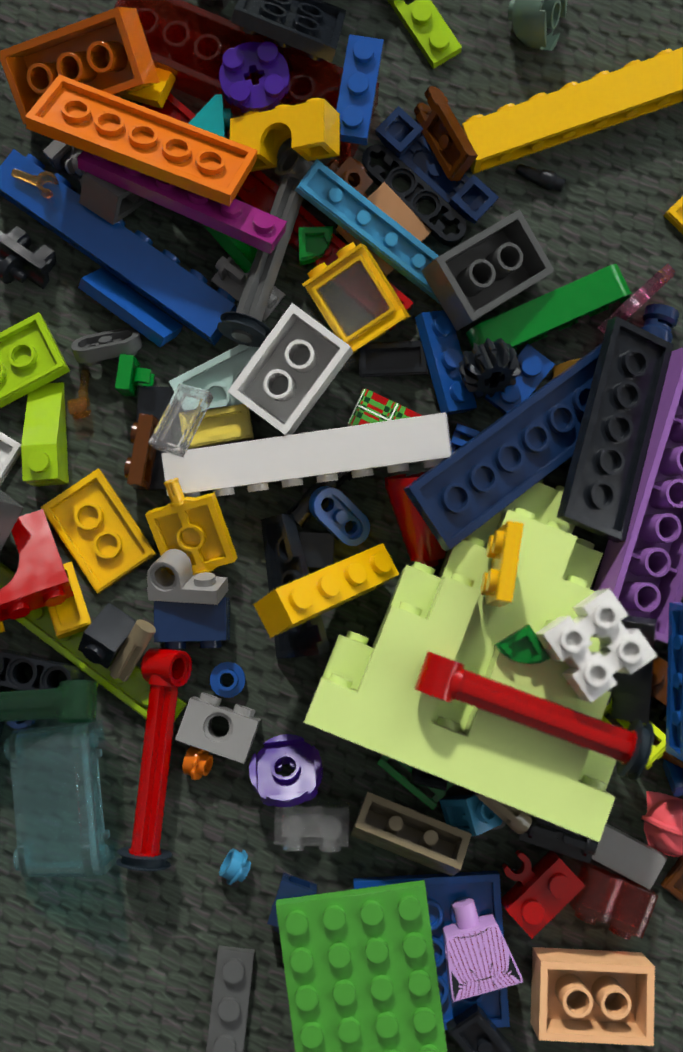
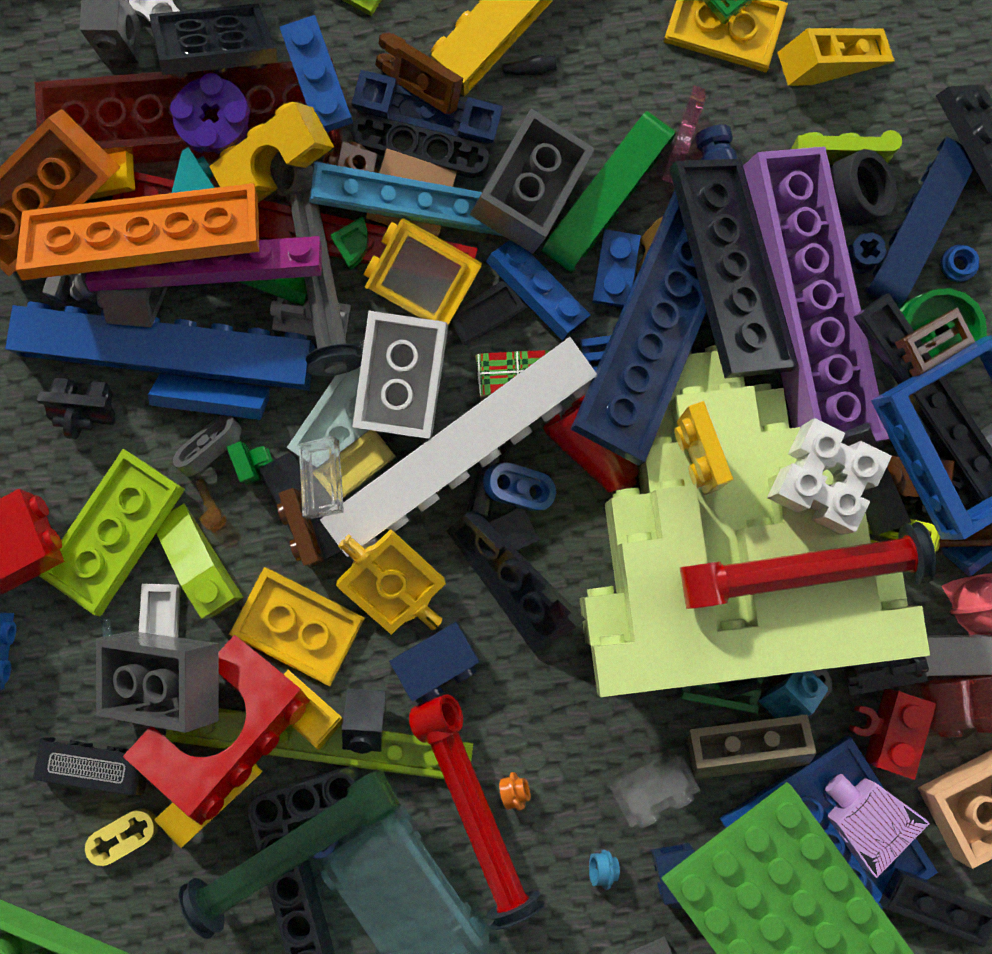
camera: 30 degrees left, 0 degrees up
(37, 181) = (53, 324): clear orange hand -> none
(132, 650) = (395, 720): dark tan piece -> none
(183, 585) = (411, 633): light grey plate -> none
(198, 732) = (499, 764): light grey brick -> none
(238, 675) = (499, 686): blue plate -> none
(291, 789) = (614, 771): plate -> none
(325, 589) = (548, 563): yellow brick -> none
(489, 367) = (584, 271): black gear -> none
(514, 818) = (840, 677): dark tan piece -> none
(522, 647) = (763, 515): green tile -> none

